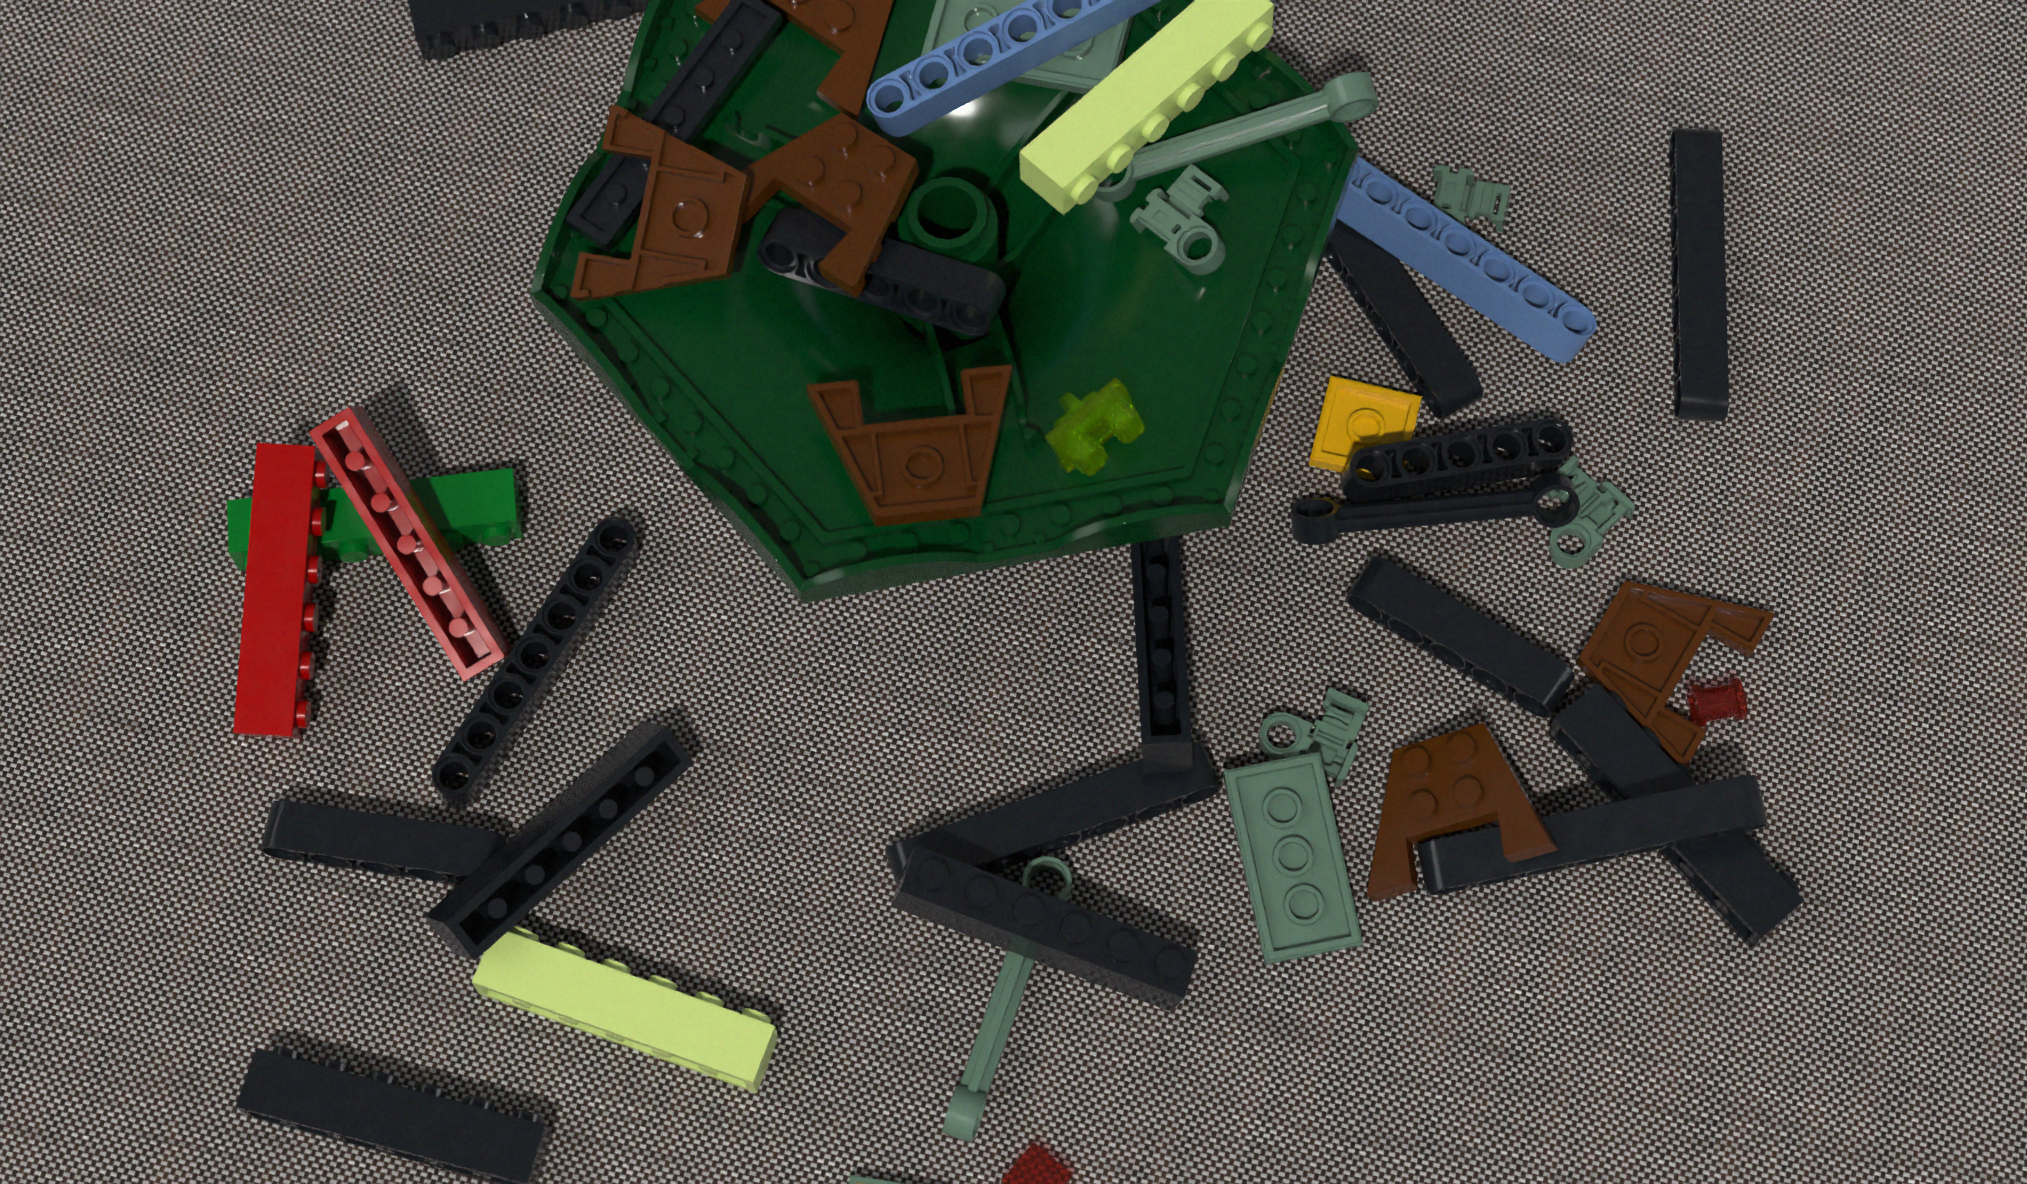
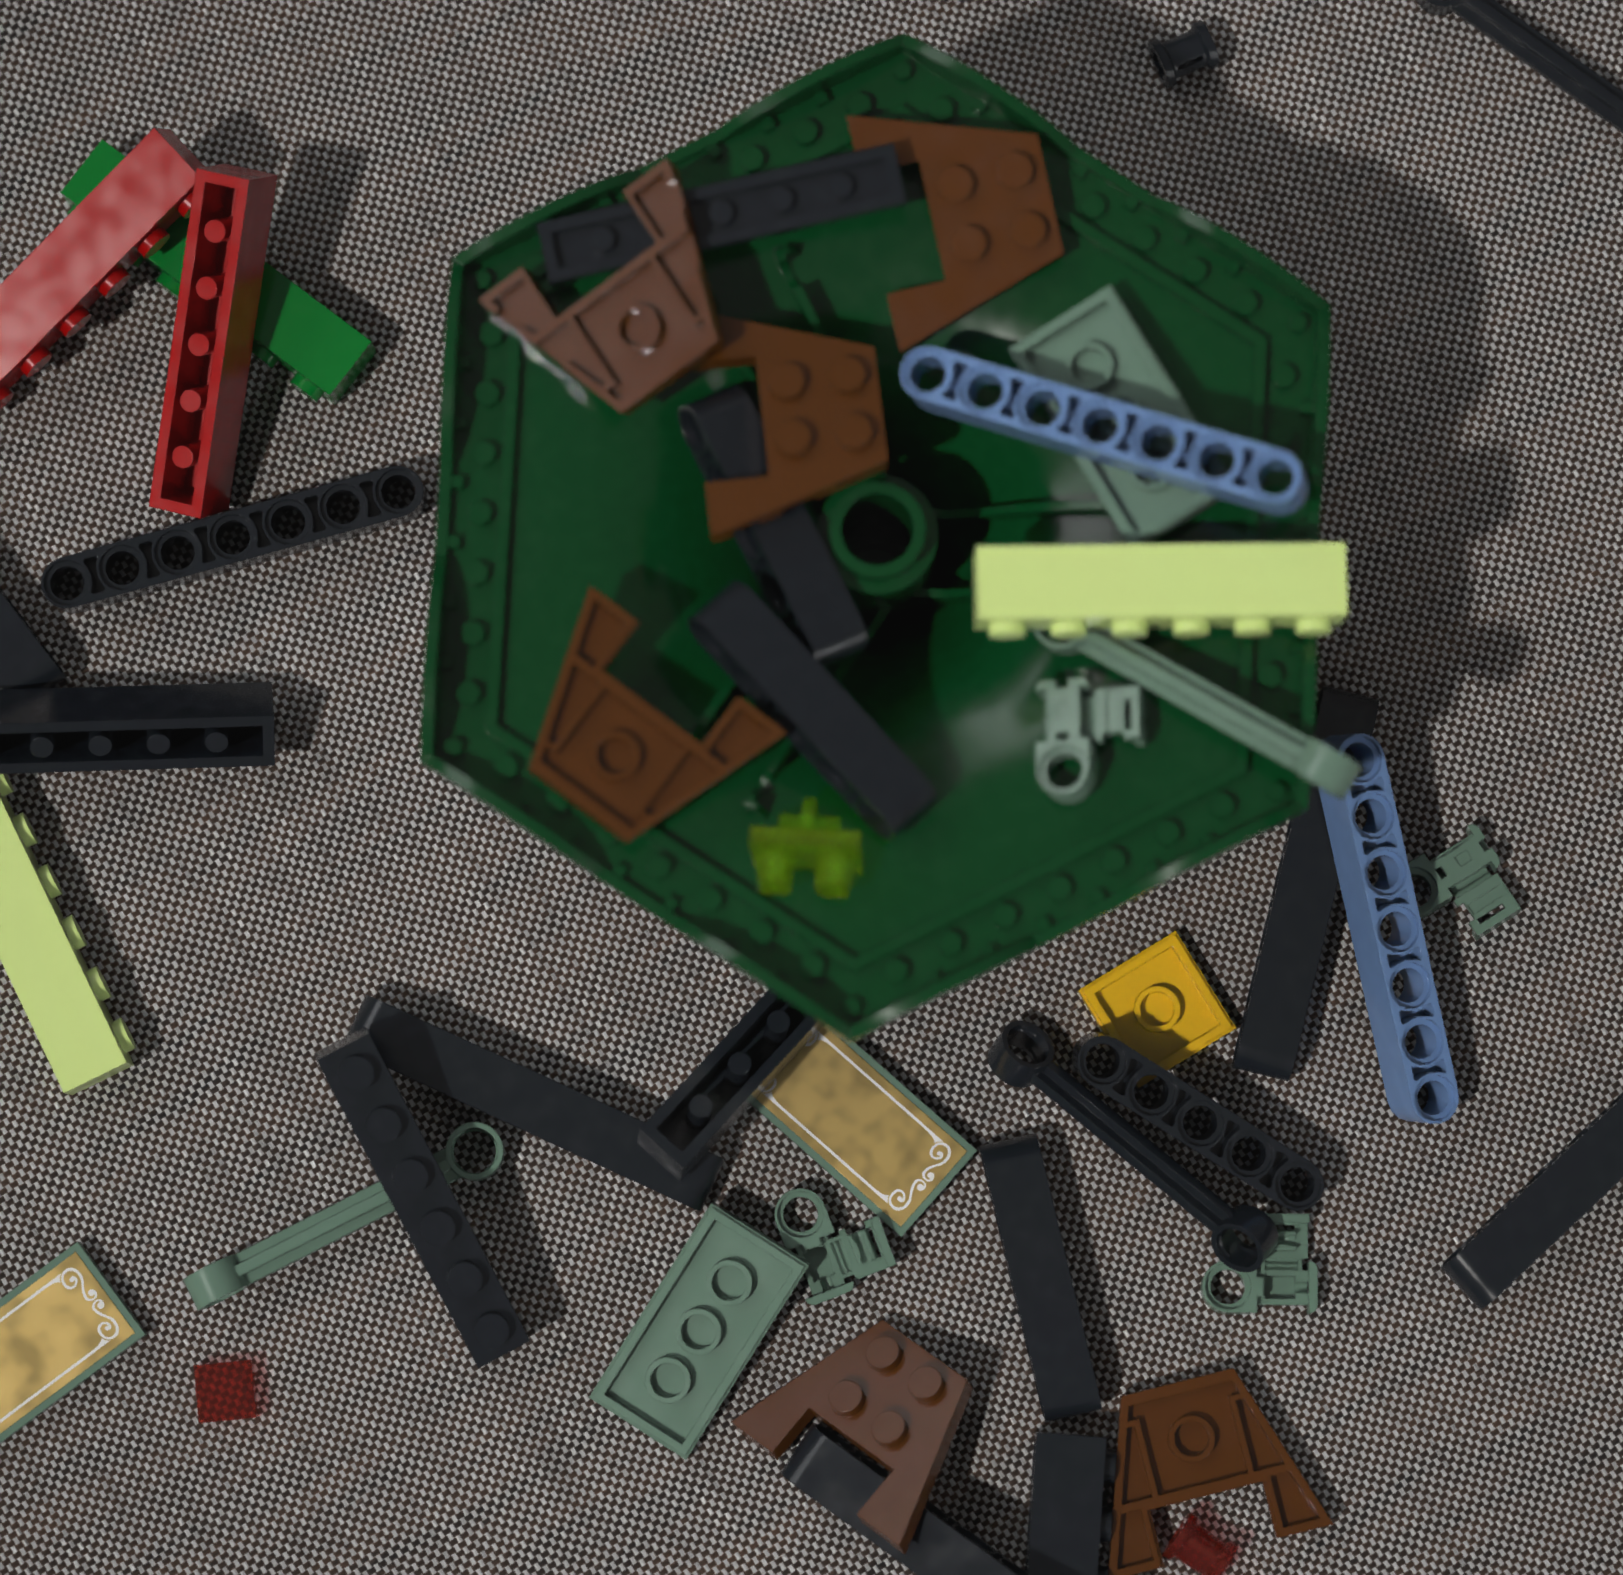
camera: 45 degrees right, 15 degrees up
(1036, 344) = (813, 710): none -> black beam
(1268, 652) = (864, 1129): none -> pearl gold tile

